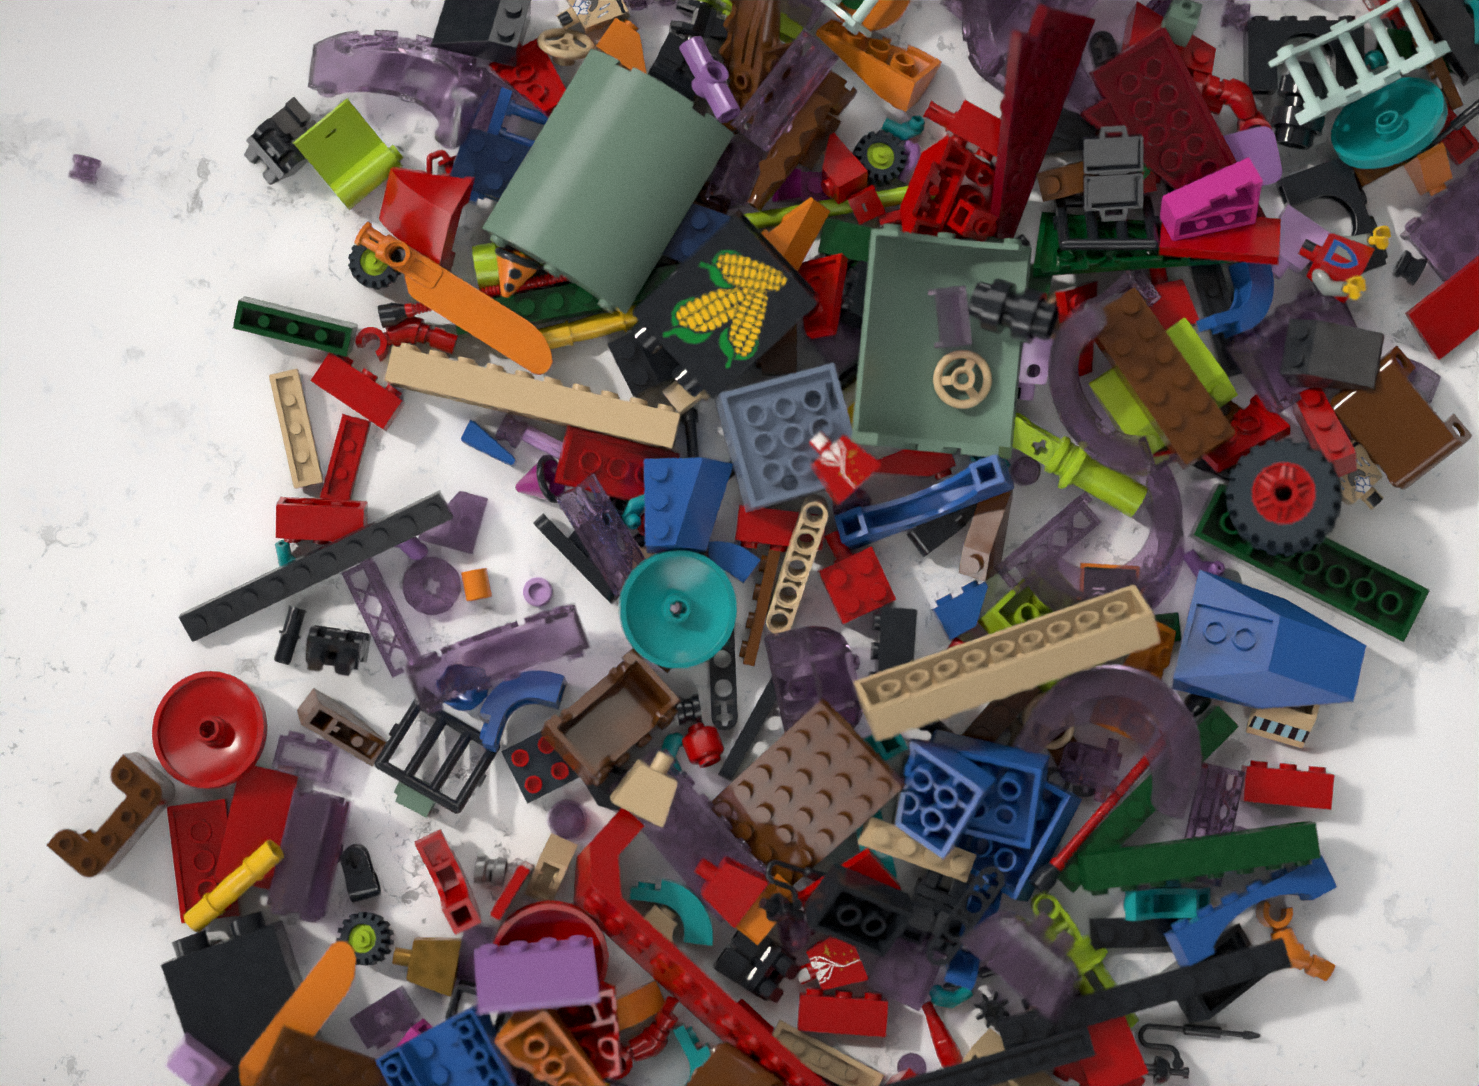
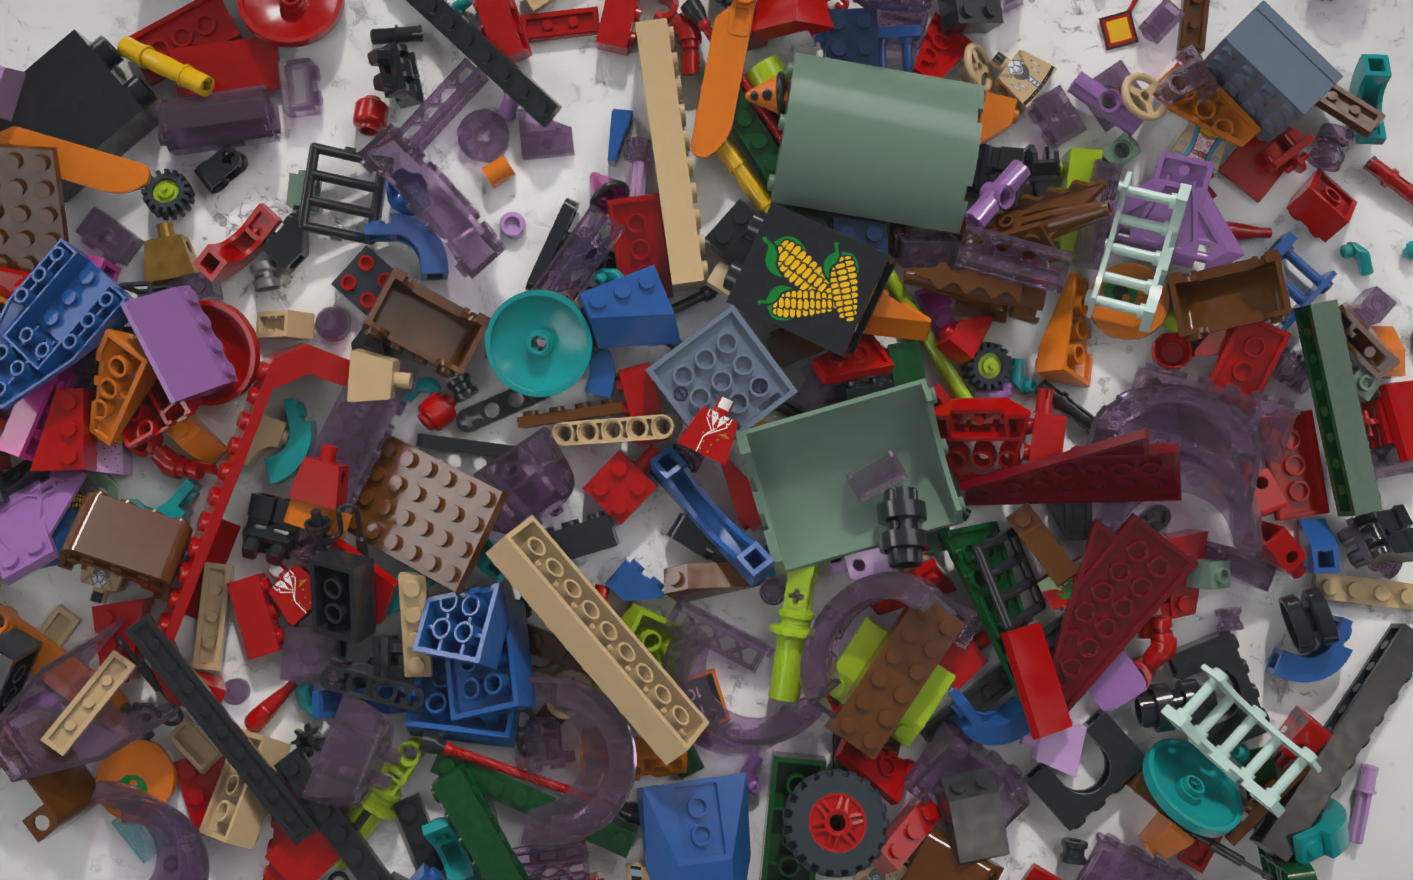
camera: 65 degrees right, 0 degrees up
(340, 727) = (336, 104): reddish brown slope -> none
(365, 695) = (370, 115): none -> red head
(468, 832) = (288, 245): none -> black slope
(511, 890) = (252, 298): red tile -> none
(866, 204) = (943, 369): red tile -> none
(940, 381) = (816, 524): tan piece -> none
(952, 92) = (1068, 406): none -> black pin
(978, 223) = (965, 469): red brick -> none
(1119, 176) = (1066, 562): black piece -> none
(1213, 202) = (1064, 663): dark pink wedge -> none
(1341, 262) = (1057, 793): torso -> none

